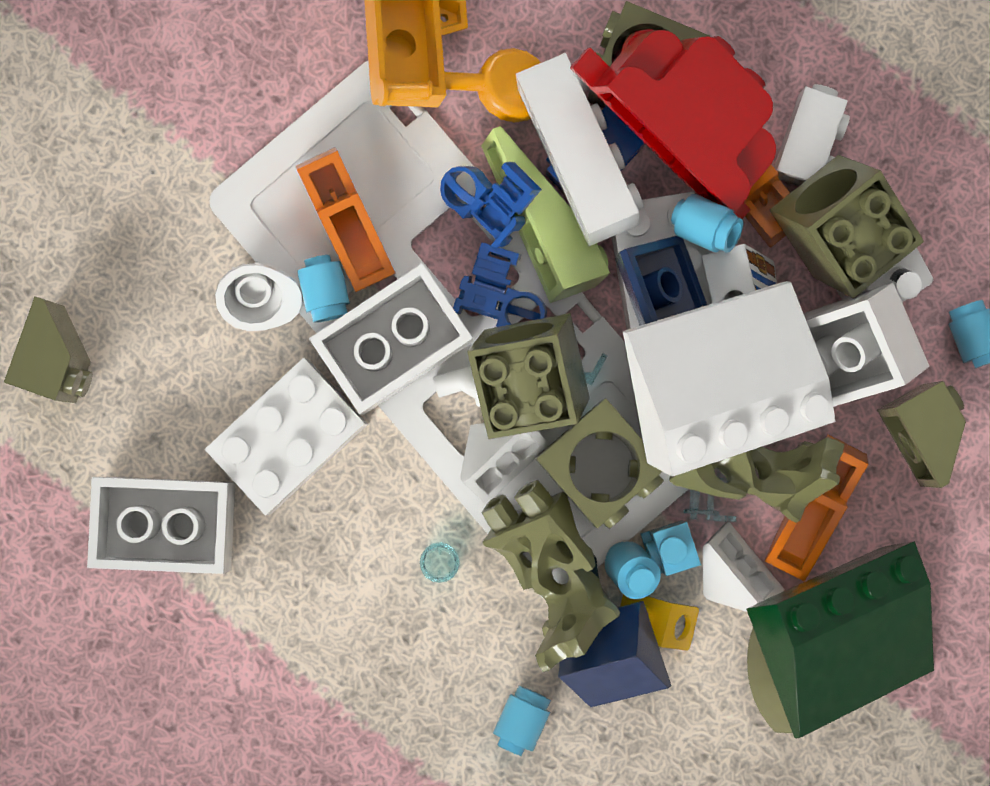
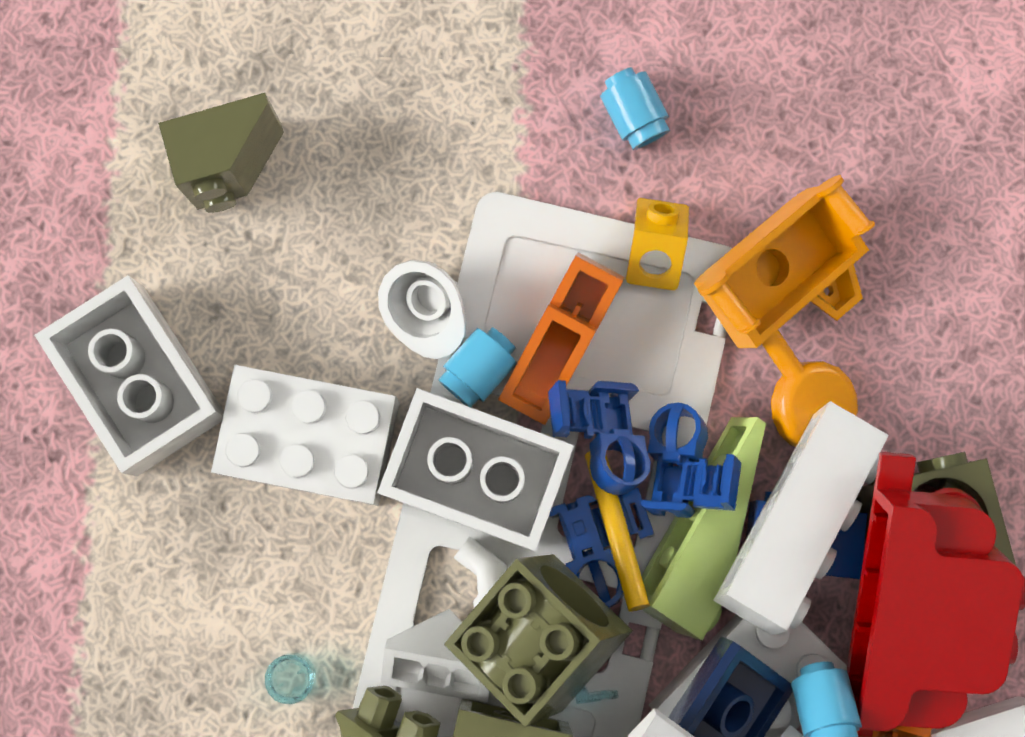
camera: 50 degrees right, 5 degrees down
(224, 54) = (635, 108): none -> medium azure brick
(319, 97) = (660, 228): none -> yellow bracket
(426, 228) = (611, 422): none -> blue piece
(498, 276) = (621, 546): none -> yellow bar

